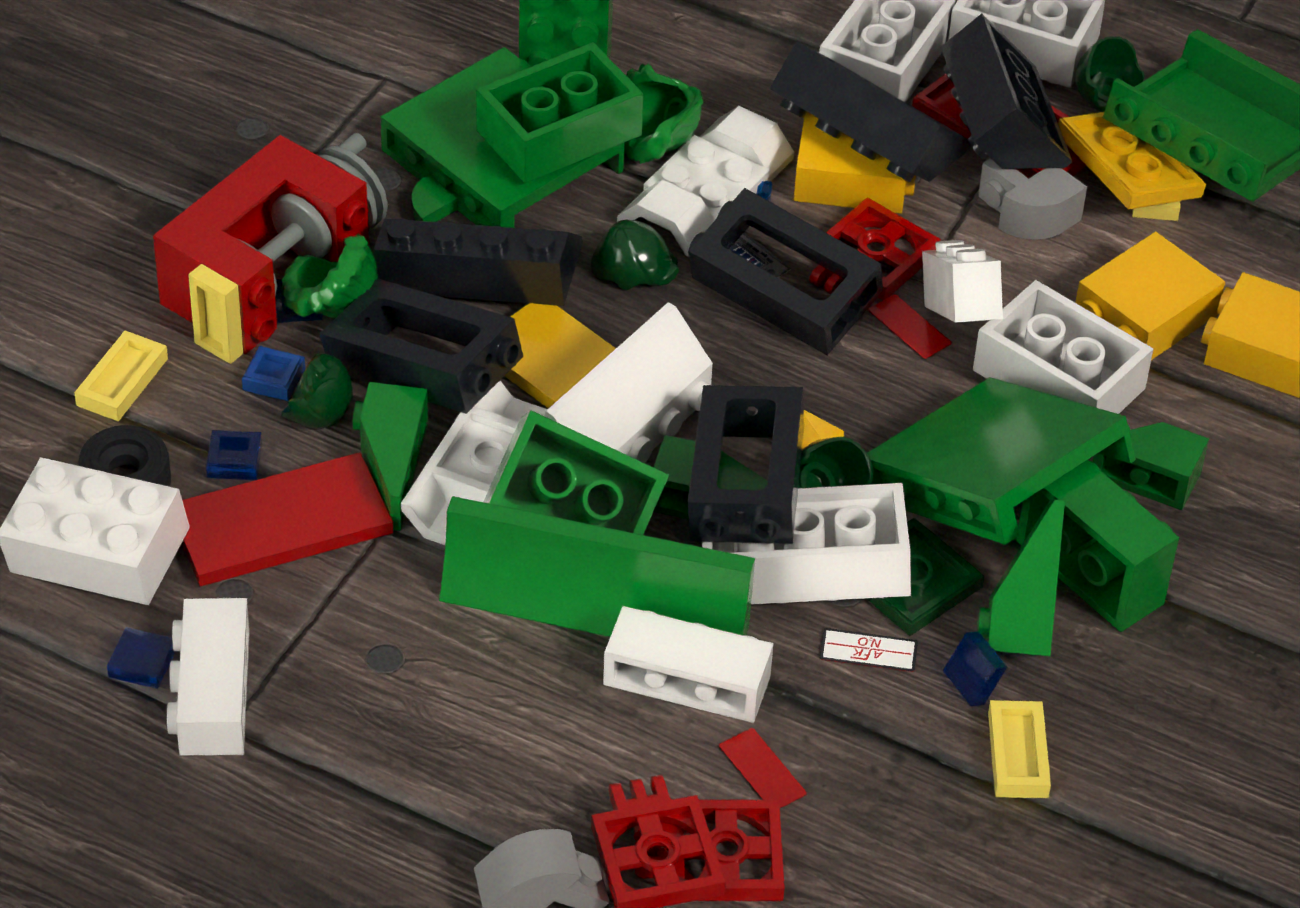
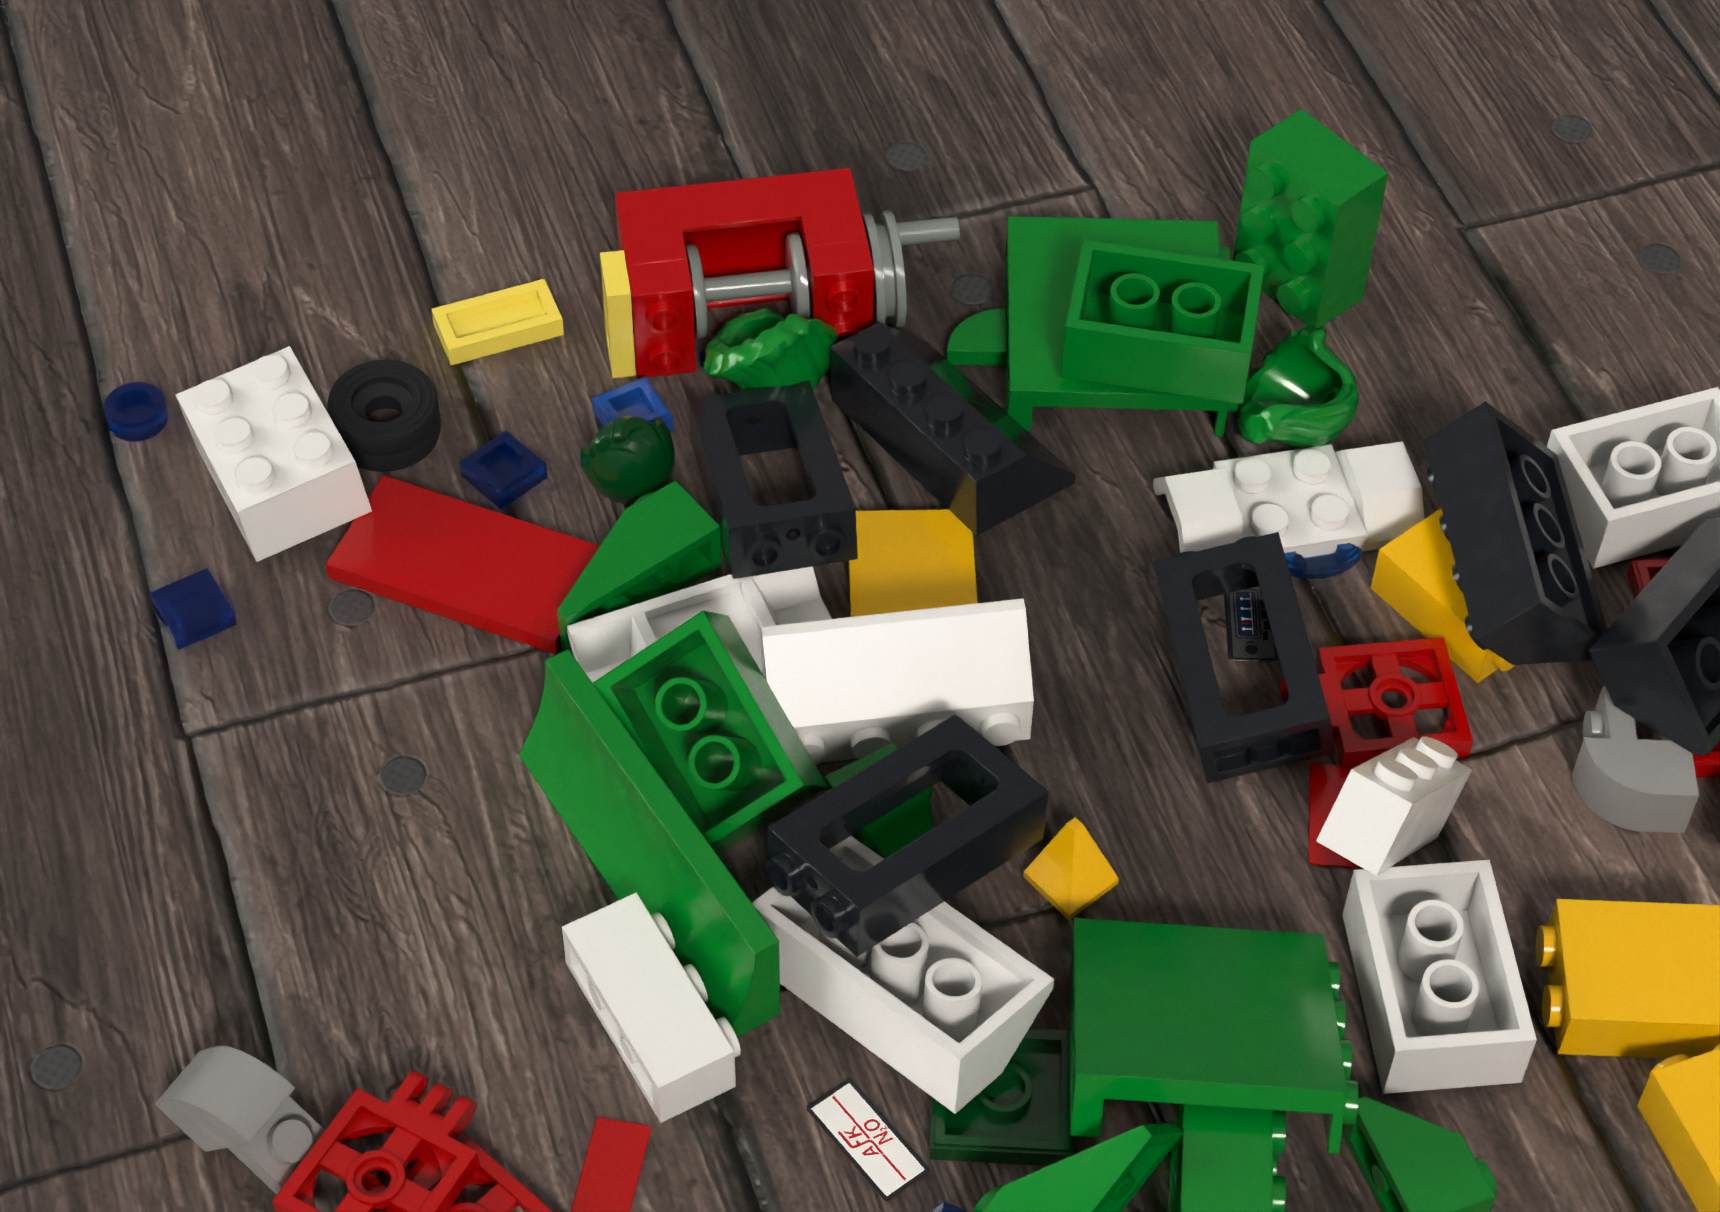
camera: 45 degrees right, 5 degrees up
(210, 677) = (215, 673): white brick -> none
(634, 255) = (1113, 533): dark green hair -> none
(834, 463) = (1022, 908): dark green hair -> none

